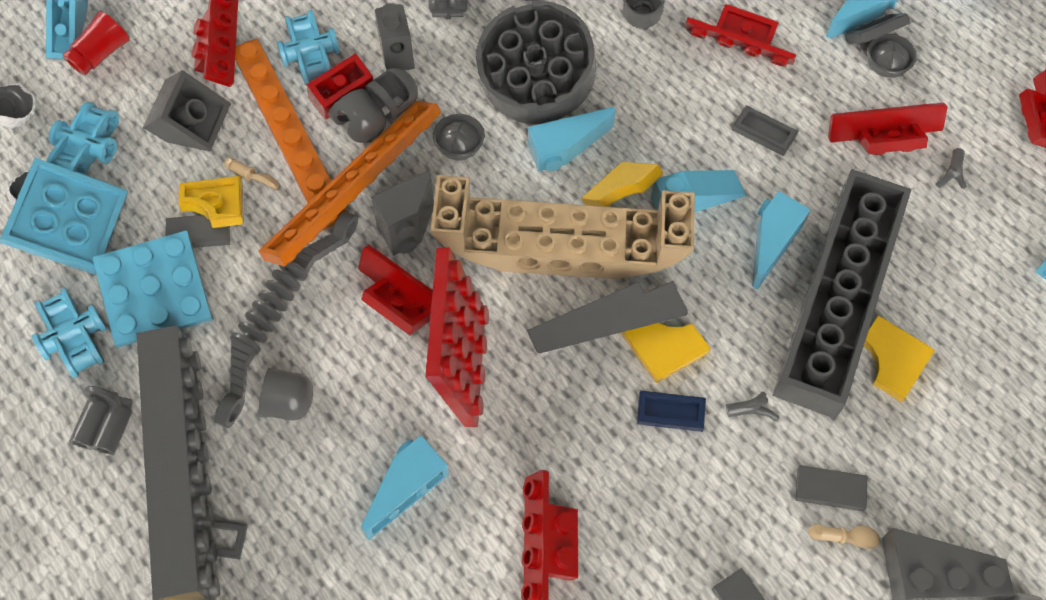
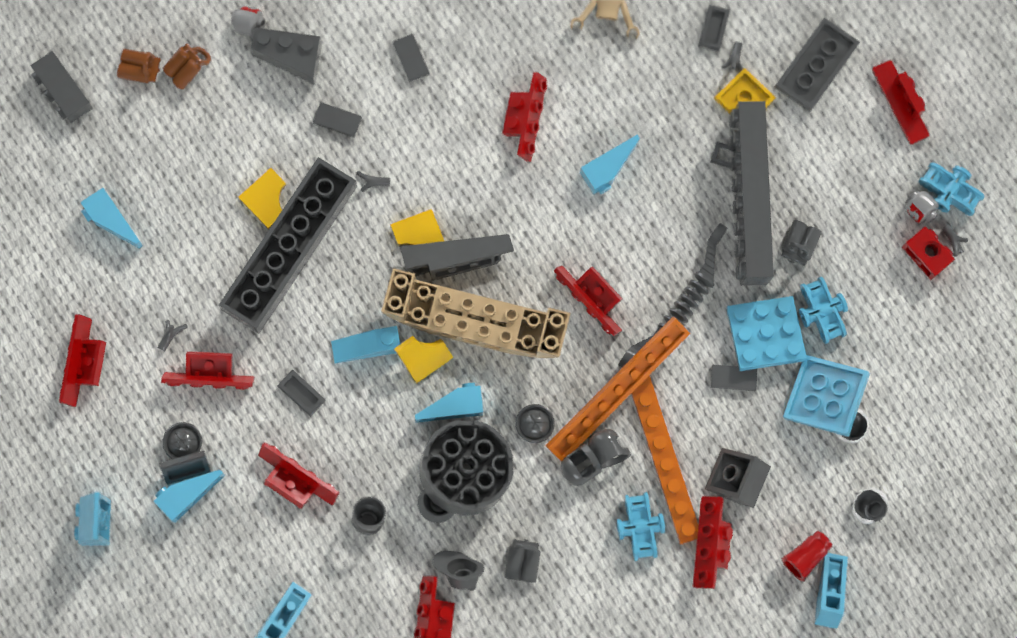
camera: 175 degrees left, 15 degrees up
(85, 139) = (816, 466): medium azure axle -> none
(216, 199) = (718, 399): yellow tile -> none
(249, 173) = (684, 413): tan piece -> none
(285, 395) = (680, 235): dark grey helmet -> none
(338, 82) = (619, 476): red brick -> none
(393, 28) = (572, 519): dark grey torso -> none
(404, 213) = (586, 352): dark grey slope -> none
(456, 339) = (562, 235): red plate -> none
(671, 411) = (427, 188): dark blue tile -> none
(776, 230) = (318, 304): medium azure slope -> none
(859, 536) = (328, 87): tan piece -> none

